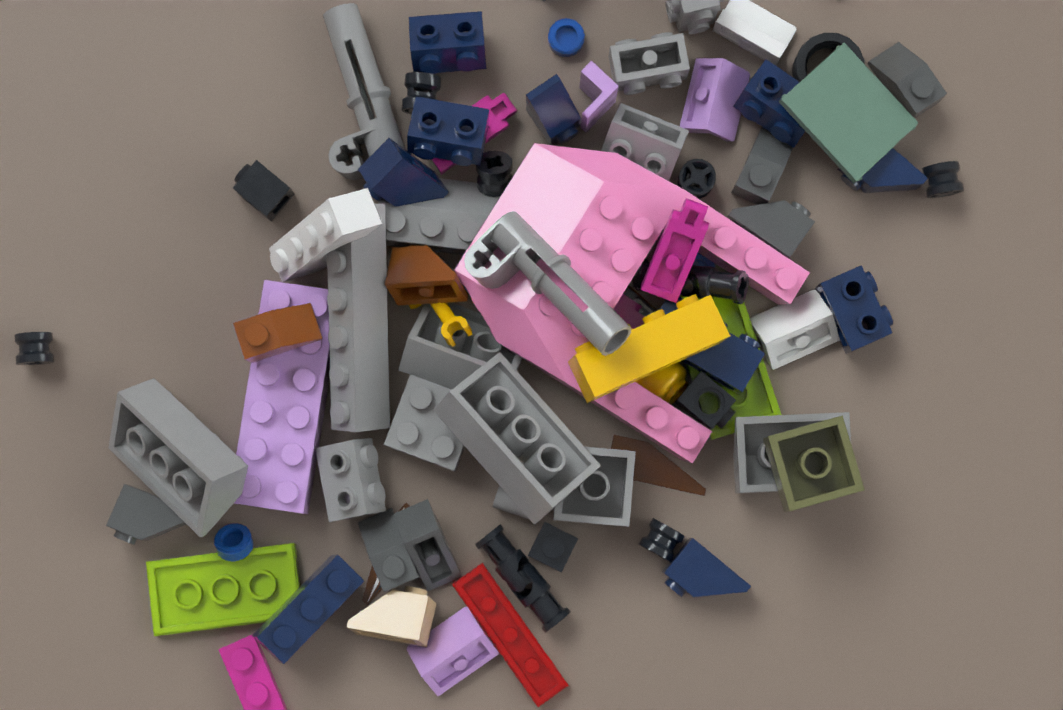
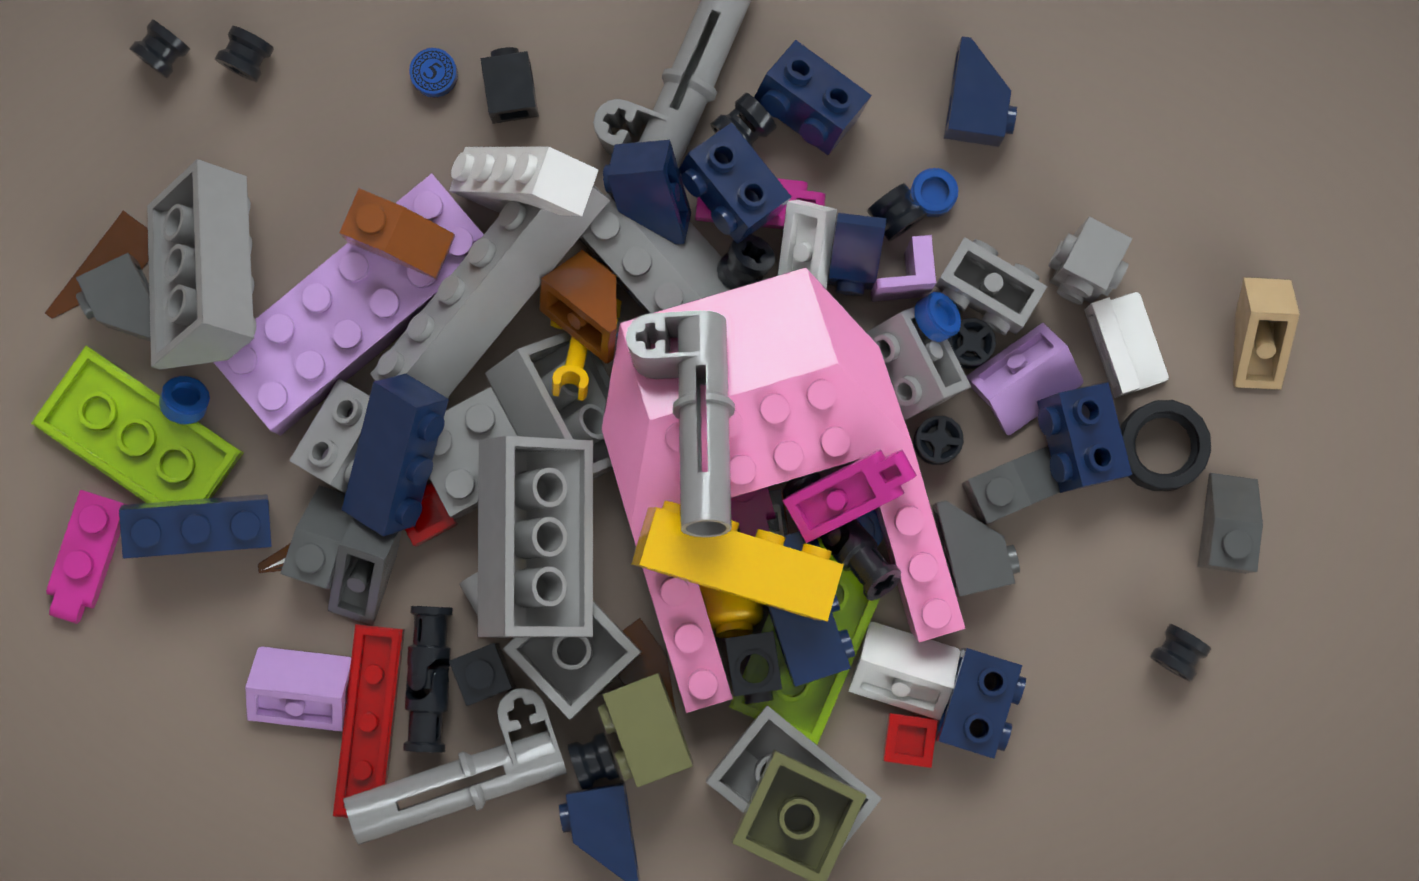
camera: 40 degrees right, 0 degrees up
(87, 307) = (244, 53): none -> black wheel
(110, 481) = (123, 237): none -> reddish brown sticker
(210, 221) = (433, 72): none -> blue tile
(390, 462) = (395, 454): none -> dark blue brick
(397, 617) = (275, 610): slope -> none
(435, 484) = (433, 518): none -> red plate
(518, 127) = (807, 239): none -> white hinge
(555, 63) = (898, 210): none -> black wheel
(622, 577) = (524, 762): none -> light grey piece
(634, 106) = (937, 316): none -> blue tile
(666, 99) = (977, 338): none -> black wheel
(679, 493) = (646, 729): none -> olive brick
(833, 366) = (910, 740): none -> red plate
(848, 112) = (1142, 505): sand green piece -> none
(888, 175) = (1127, 586): dark blue slope -> none

